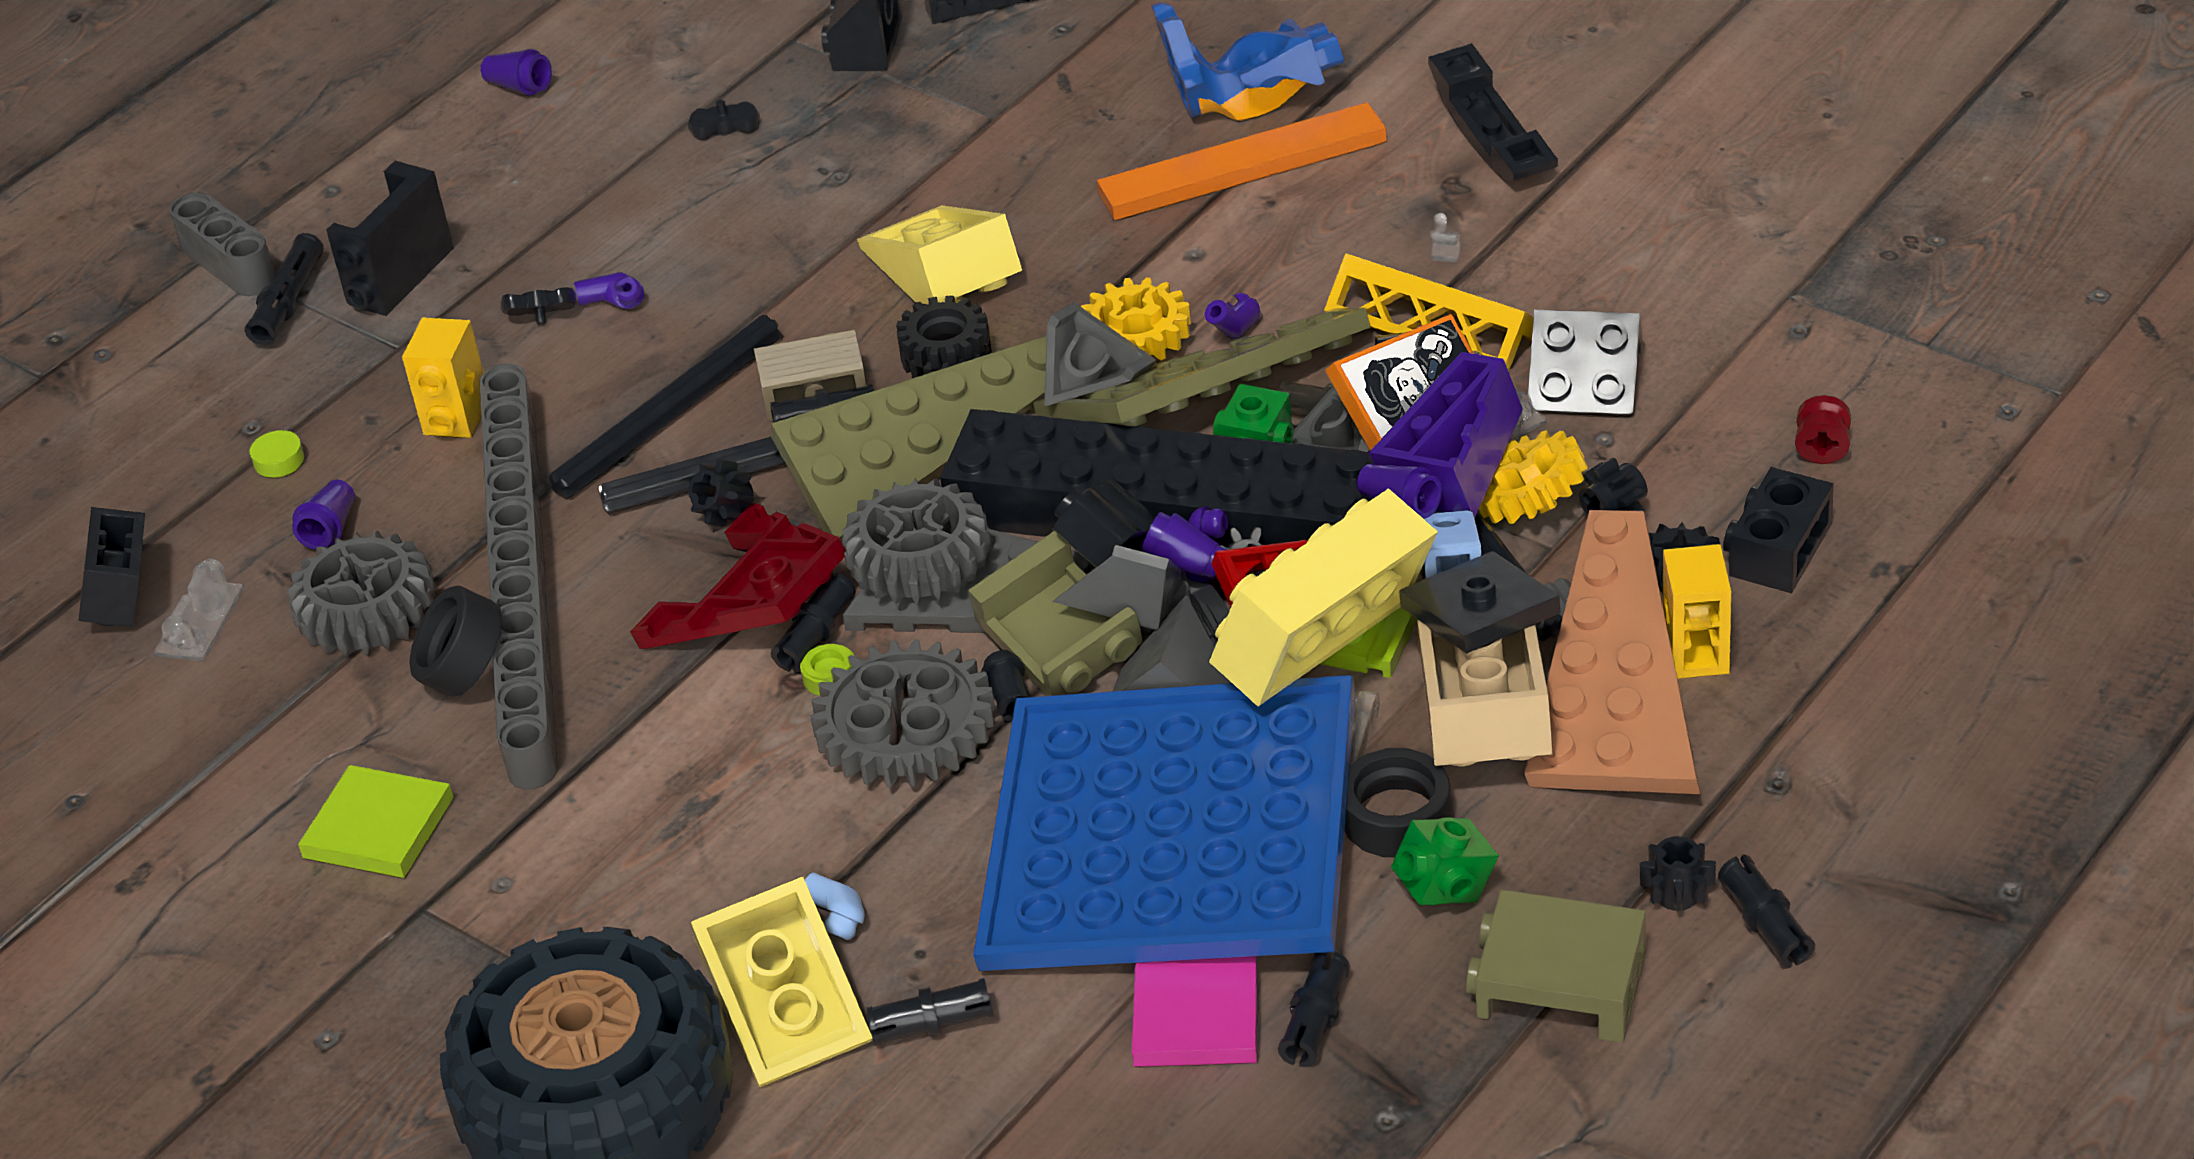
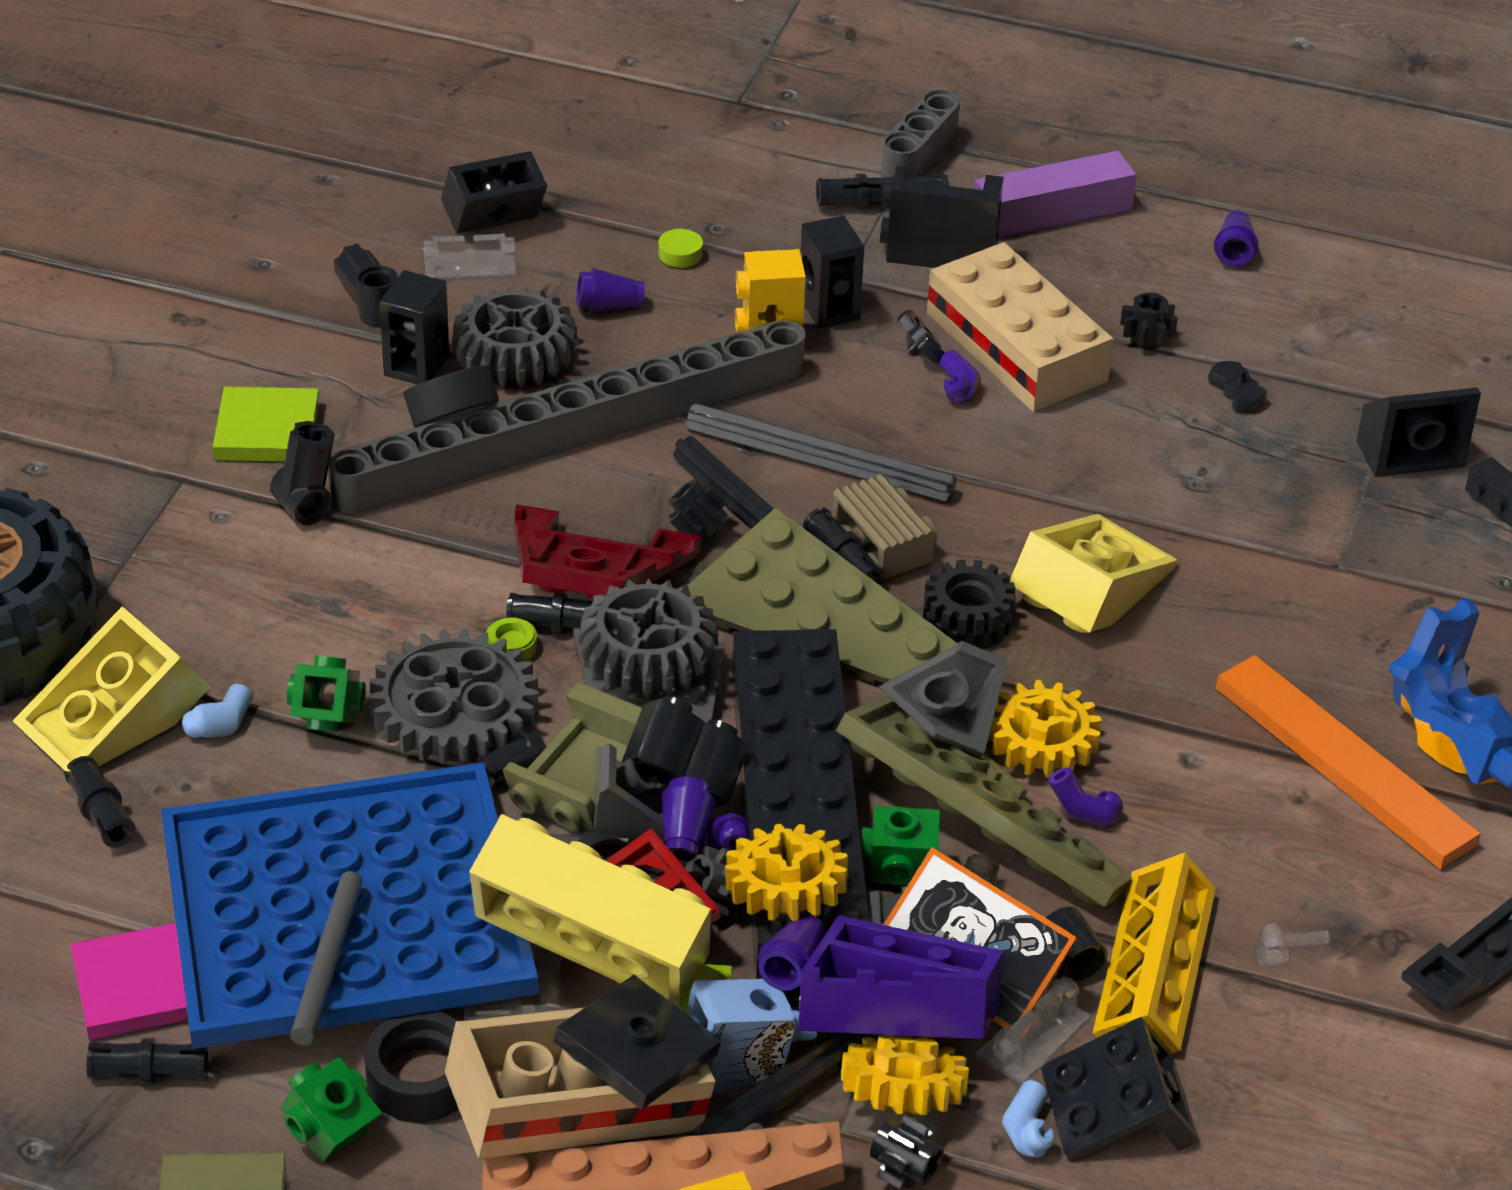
camera: 65 degrees right, 0 degrees up
(210, 693) = (365, 280): none -> black piece
(324, 653) = (414, 327): none -> black brick
(378, 139) = (1064, 193): none -> medium lavender brick
(403, 306) = (833, 271): none -> black brick
(519, 780) = (302, 479): none -> black piece
(569, 229) = (1019, 326): none -> tan brick
(609, 148) = (1149, 320): none -> black gear
(867, 799) = (307, 689): none -> green brick
(1272, 819) = (326, 959): none -> dark grey bar
(1314, 467) = (786, 872): none -> yellow gear
(1587, 430) = (1021, 1120): none -> light blue arm

